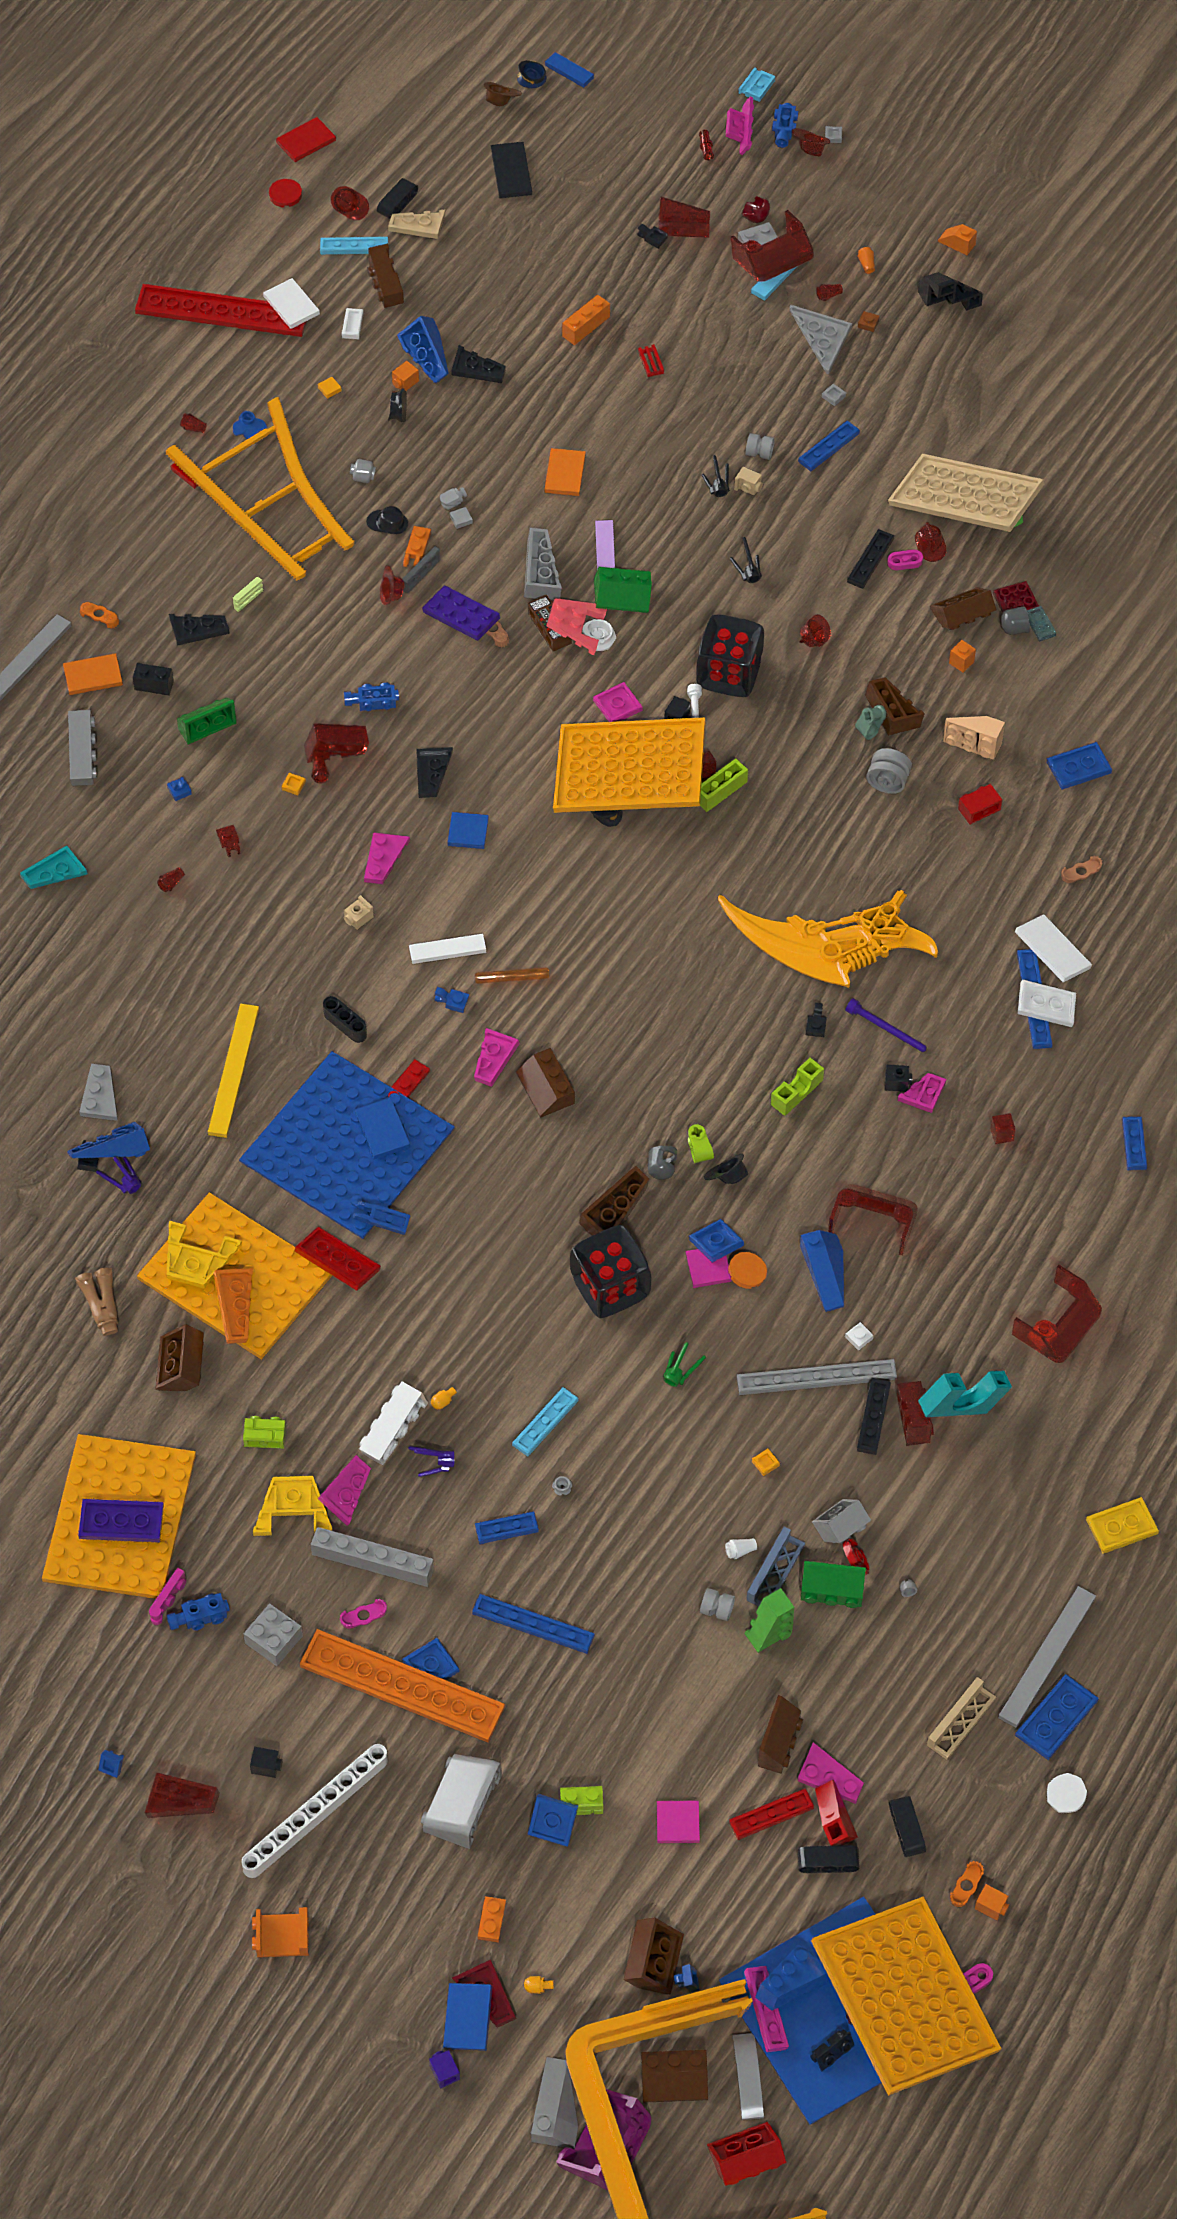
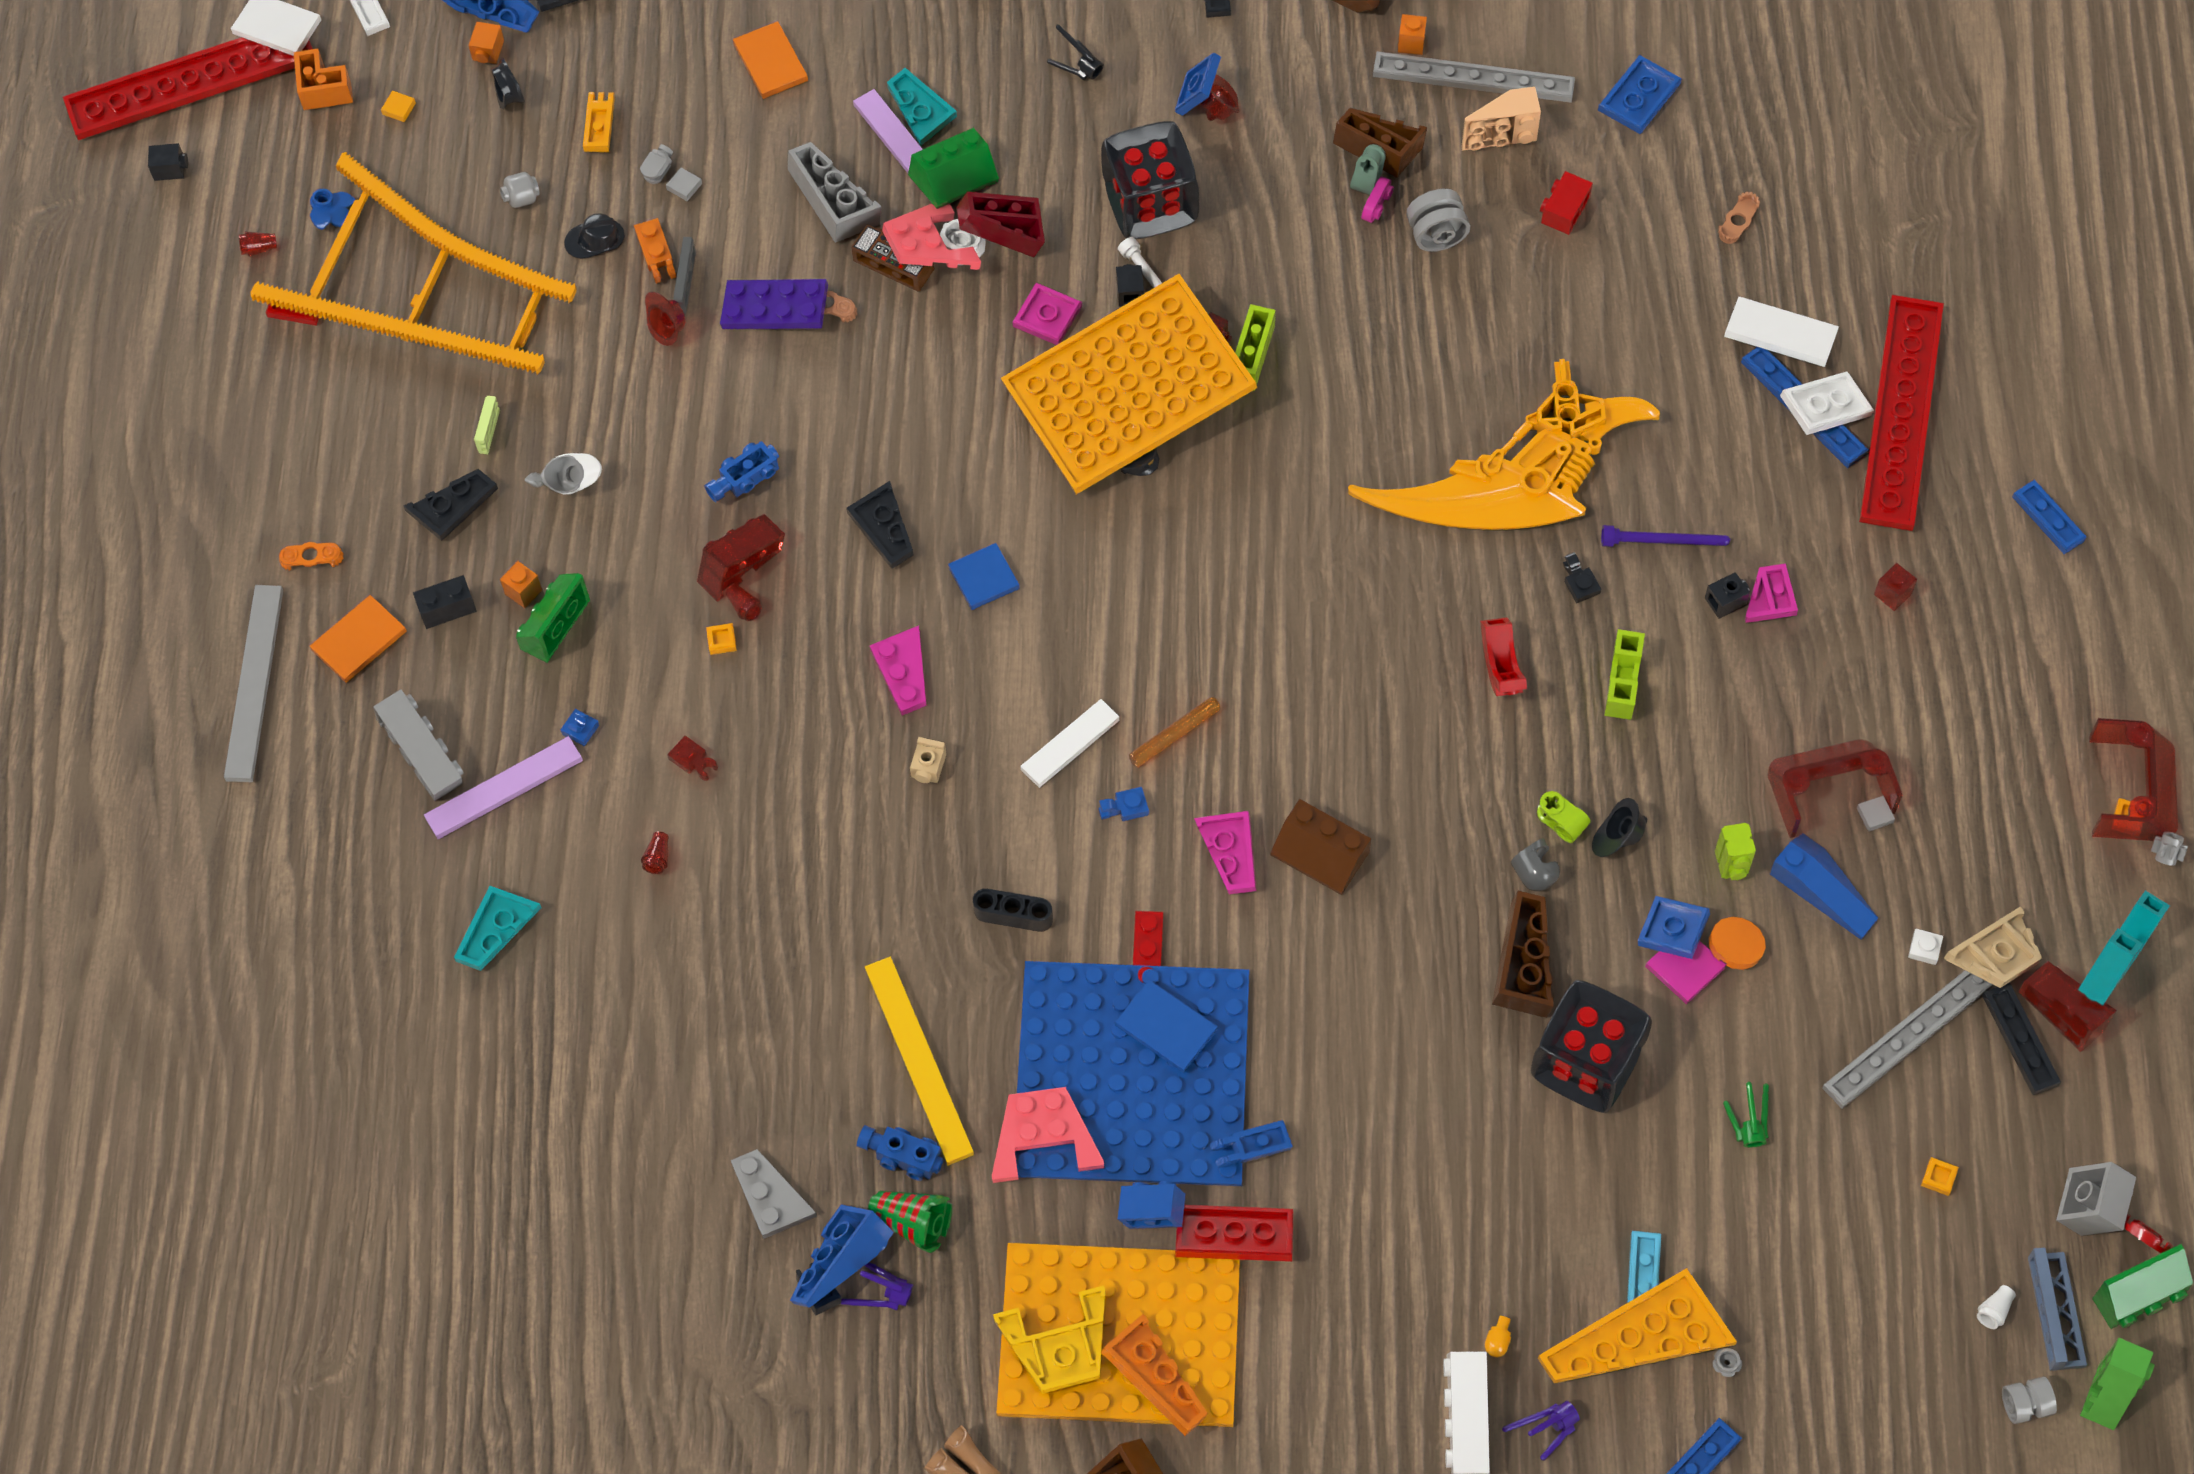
camera: 30 degrees left, 5 degrees up
(113, 798) = (503, 787): none -> lavender tile
(168, 1149) = (914, 1216): none -> green cone
(175, 351) = (167, 162): none -> black brick
(185, 1109) = (905, 1154): none -> blue brick
(202, 692) = (521, 584): none -> orange brick
(270, 644) = (567, 473): none -> light grey hair
(272, 1138) = (1041, 1121): none -> coral wing
(291, 349) = (320, 85): none -> orange brick
(300, 1216) = (1151, 1205): none -> blue brick
(437, 456) = (598, 122): none -> light orange hinge
(533, 1441) = (1654, 1327): none -> light orange wing
(627, 633) = (1003, 220): none -> dark red wedge
(633, 544) = (920, 105): none -> teal wing
(733, 1037) = (1501, 657): none -> red arch
(783, 1217) = (1735, 851): none -> lime brick
(805, 616) = (1197, 84): none -> blue tile
(864, 741) = (1380, 193): none -> dark pink plate
(889, 1248) = (1875, 813): none -> light grey tile
(897, 1360) = (1998, 951): none -> tan wing
(983, 701) = (1471, 76): none -> light grey tile
(1049, 1364) = (2169, 848): none -> light grey gear
(1090, 1034) = (1901, 413): none -> red plate

